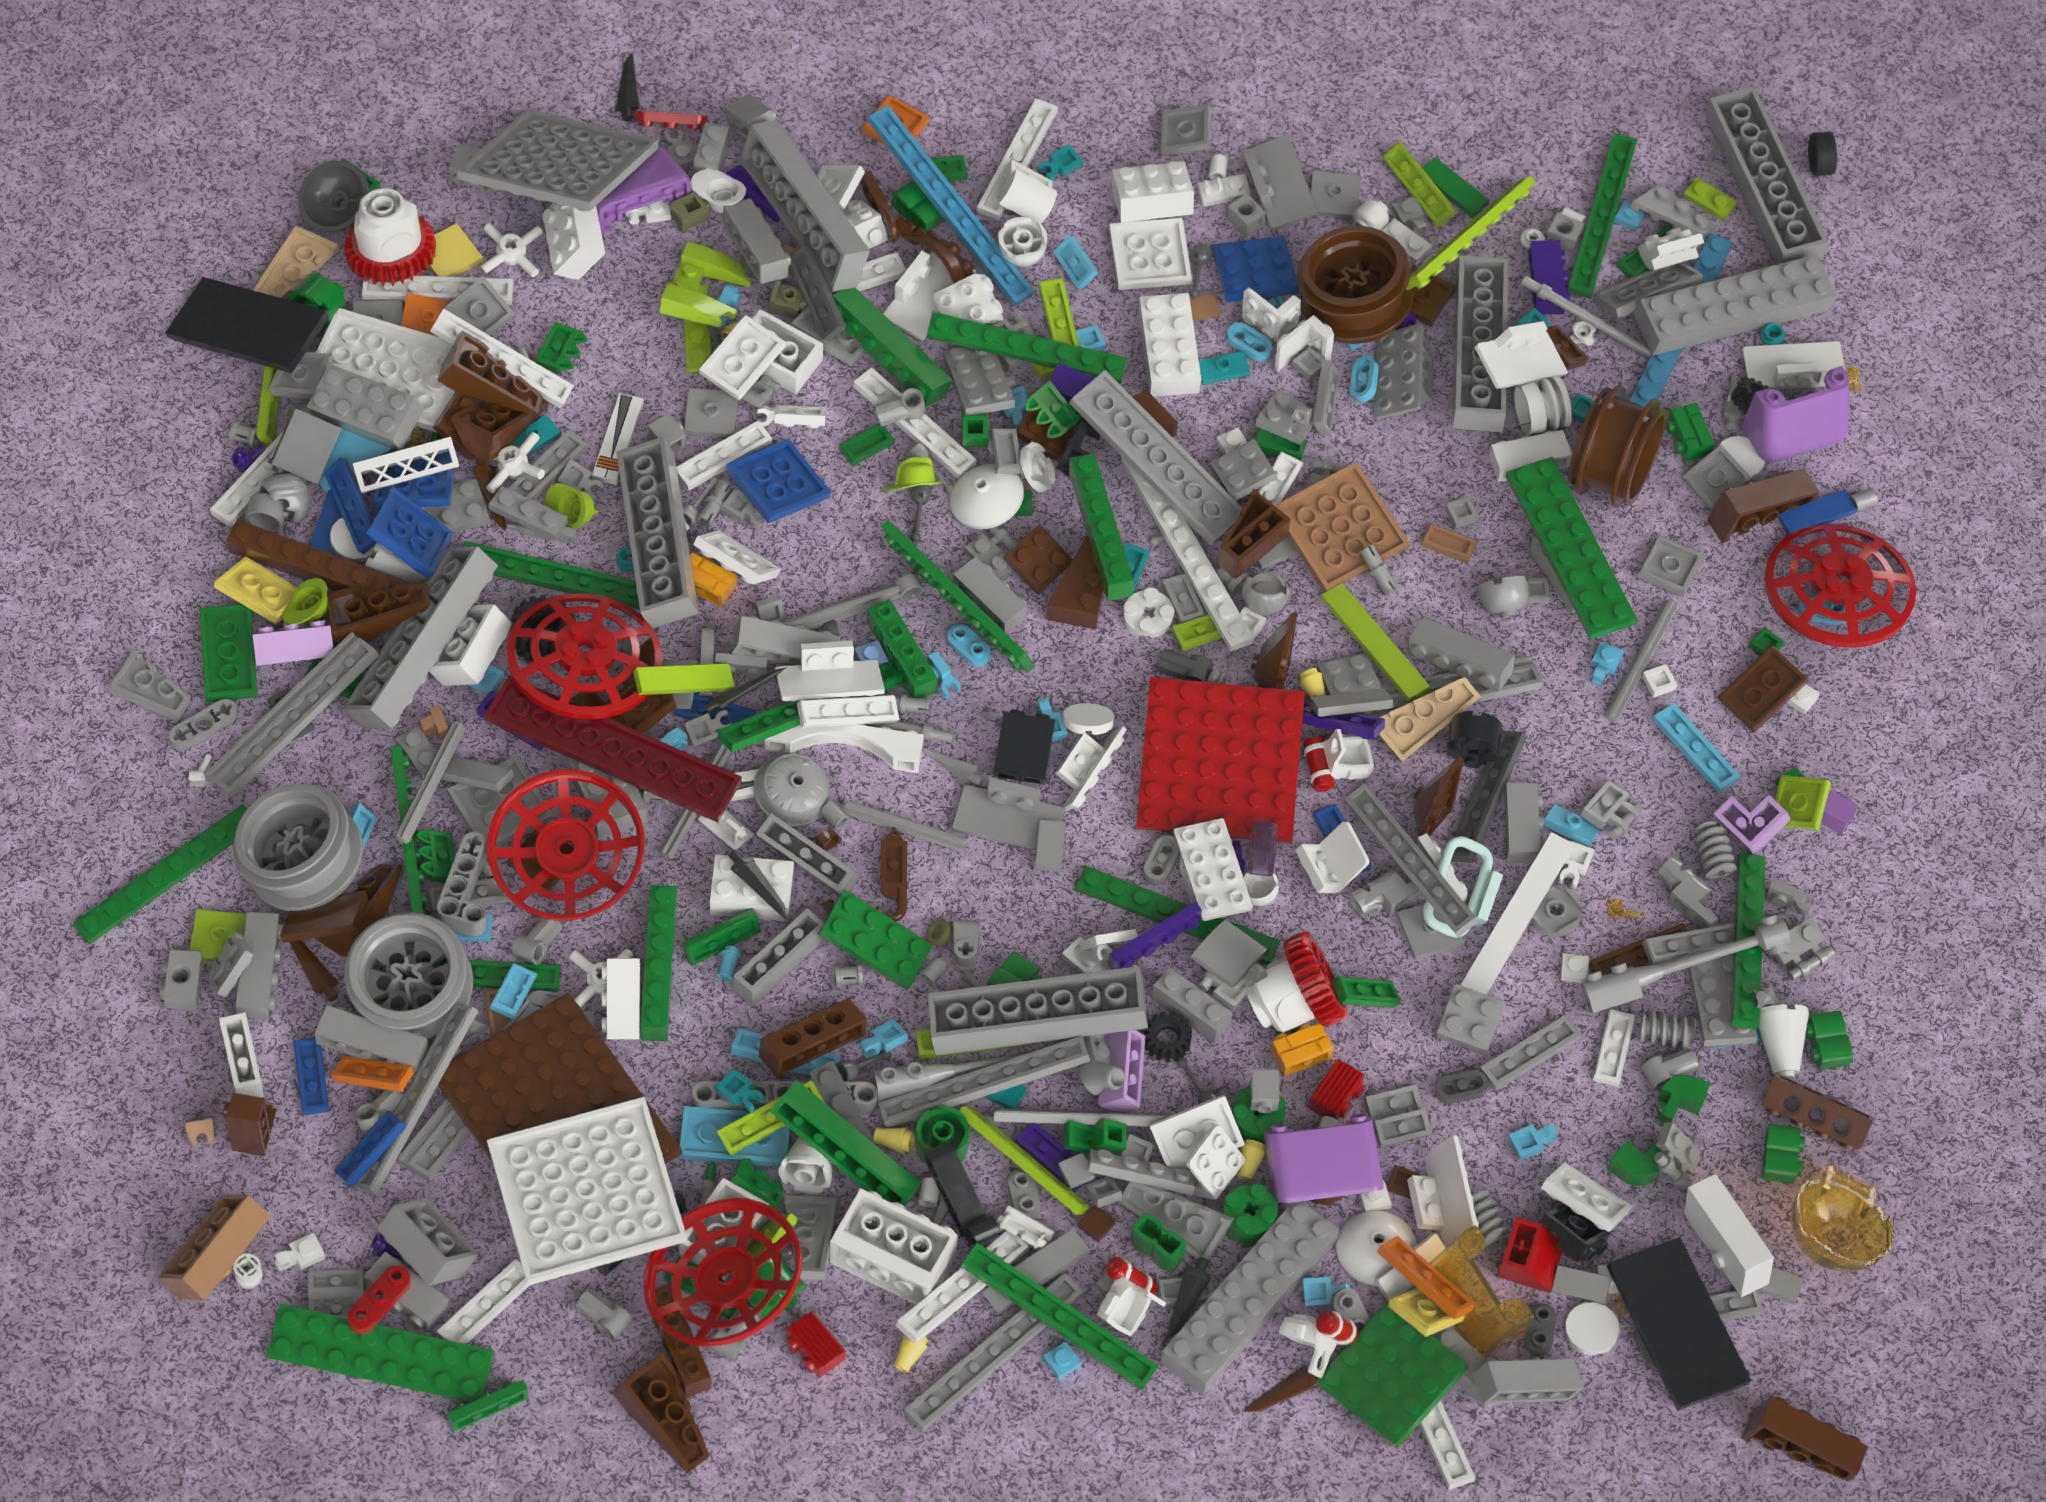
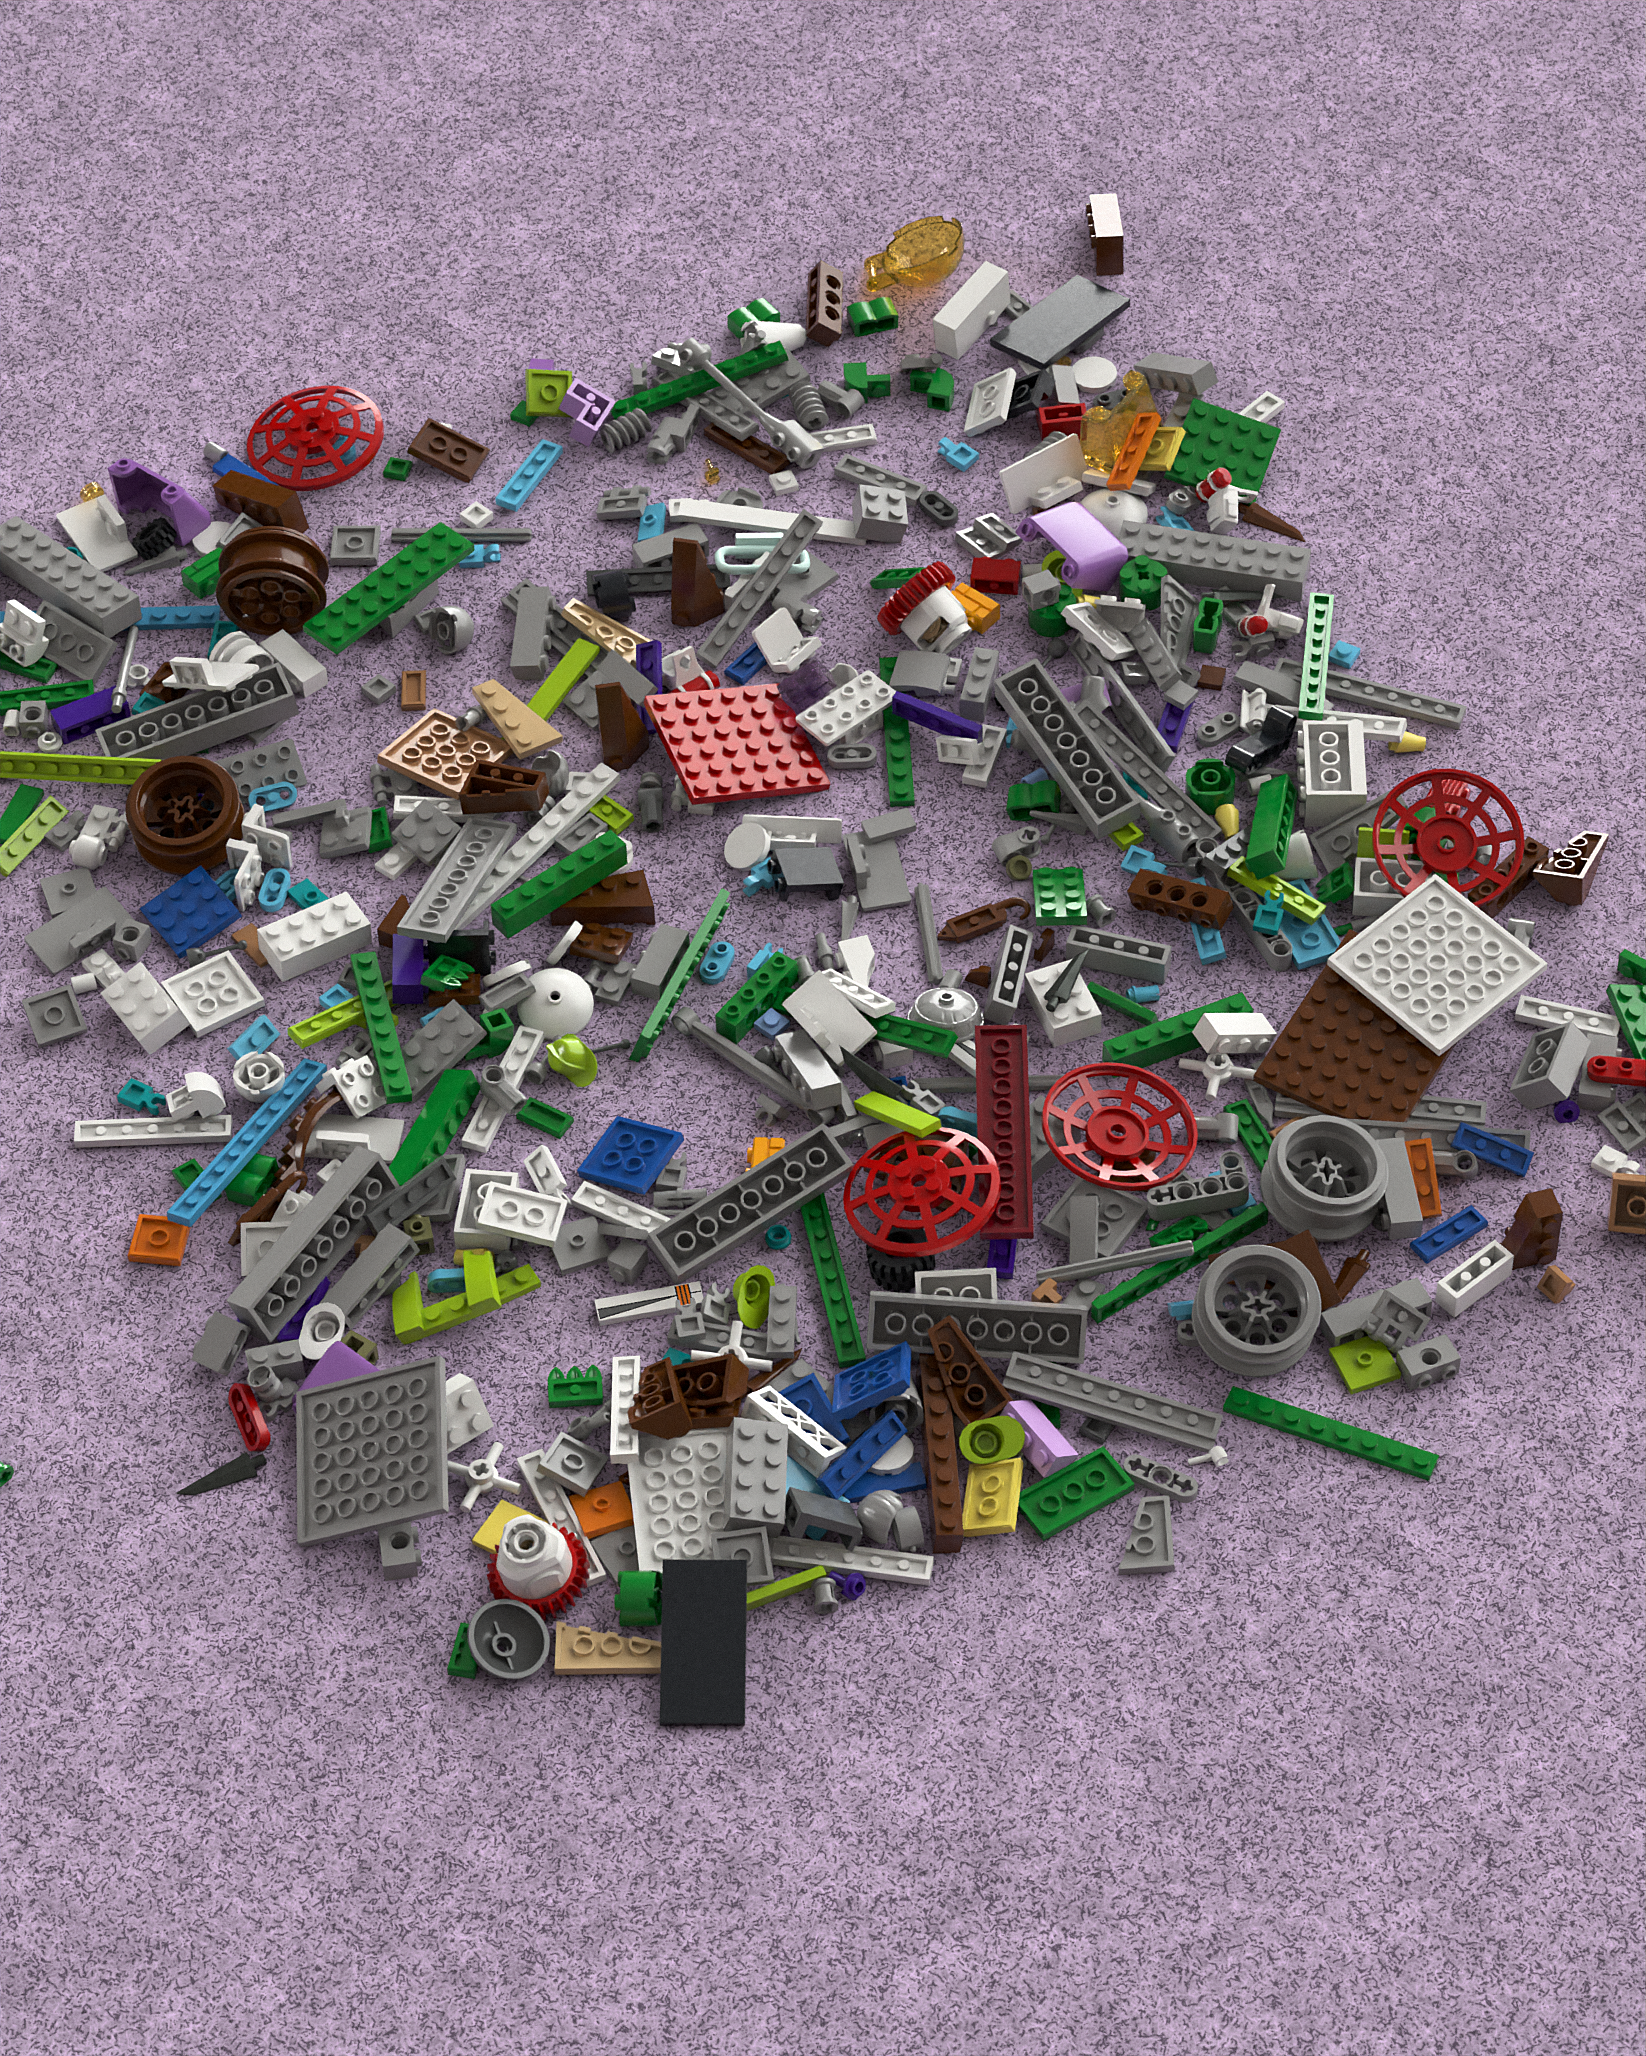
camera: 110 degrees left, 10 degrees down
(513, 991) = (1272, 1119): medium azure plate -> none
(514, 335) = (582, 1426): none -> light grey plate
(564, 442) = (689, 1323): none -> light grey plate
(690, 131) = (265, 1383): none -> light grey wheel
(692, 435) = (622, 1231): none -> light grey tile
(736, 557) = (734, 1147): white plate -> none
(933, 971) = (1056, 859): light grey hinge -> none
(1025, 1161) = (1193, 731): lime tile -> none
(1047, 523) = (565, 941): none -> white tile
(1102, 1136) = (1142, 688): green brick -> none
(1339, 597) = (515, 721): none -> tan wing

